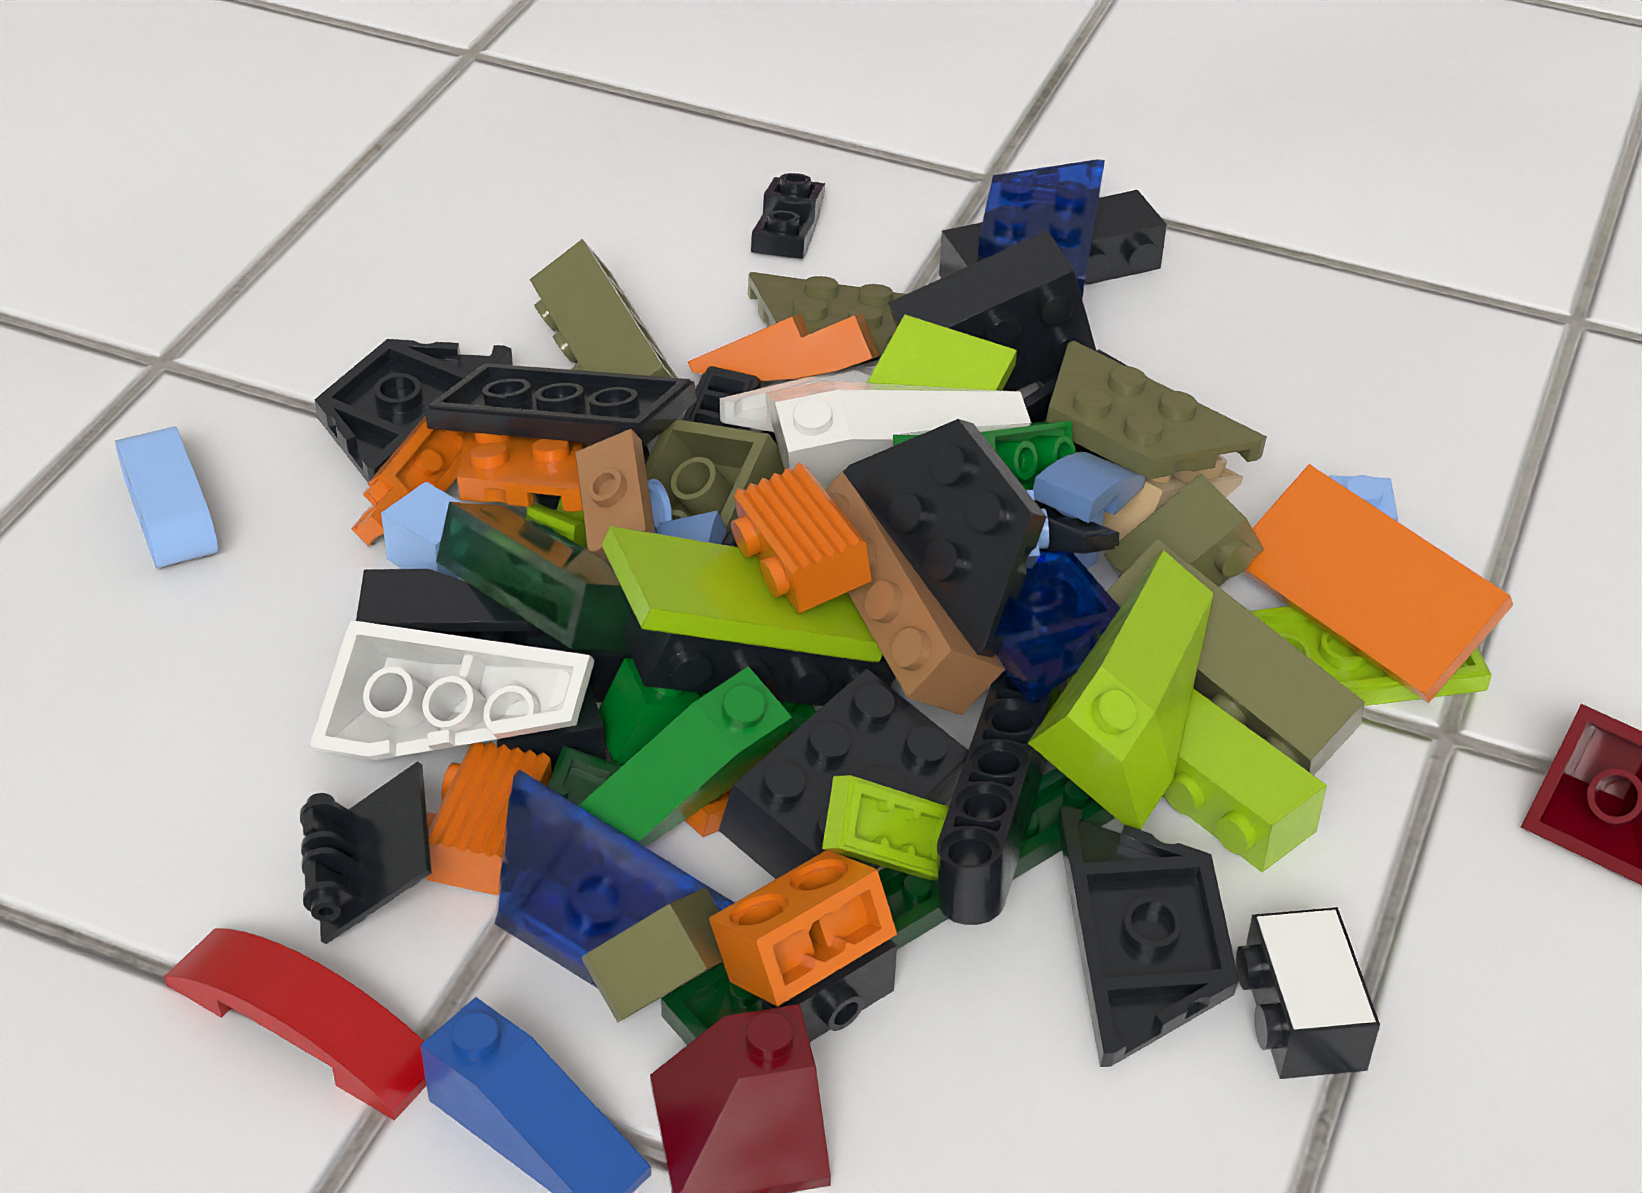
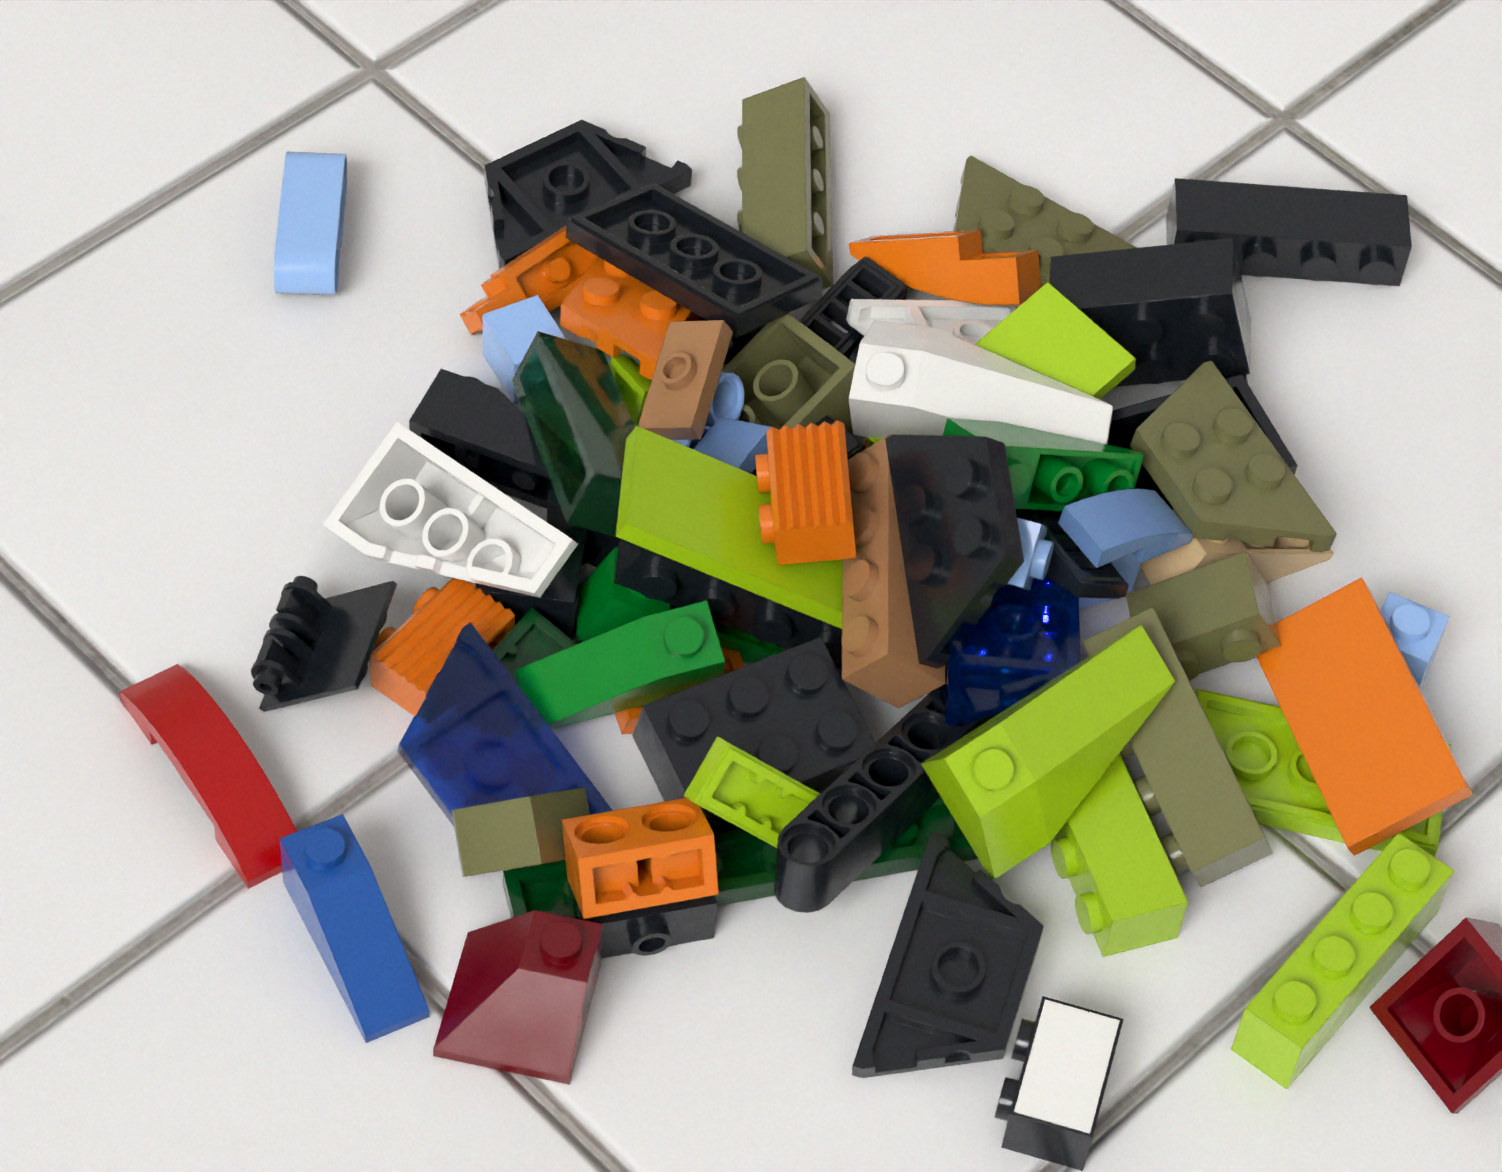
camera: 20 degrees right, 10 degrees up
(788, 216) = (1047, 102): black slope -> none
(1044, 199) = (1283, 203): clear blue wing -> none
(1482, 794) = (1341, 960): none -> lime brick

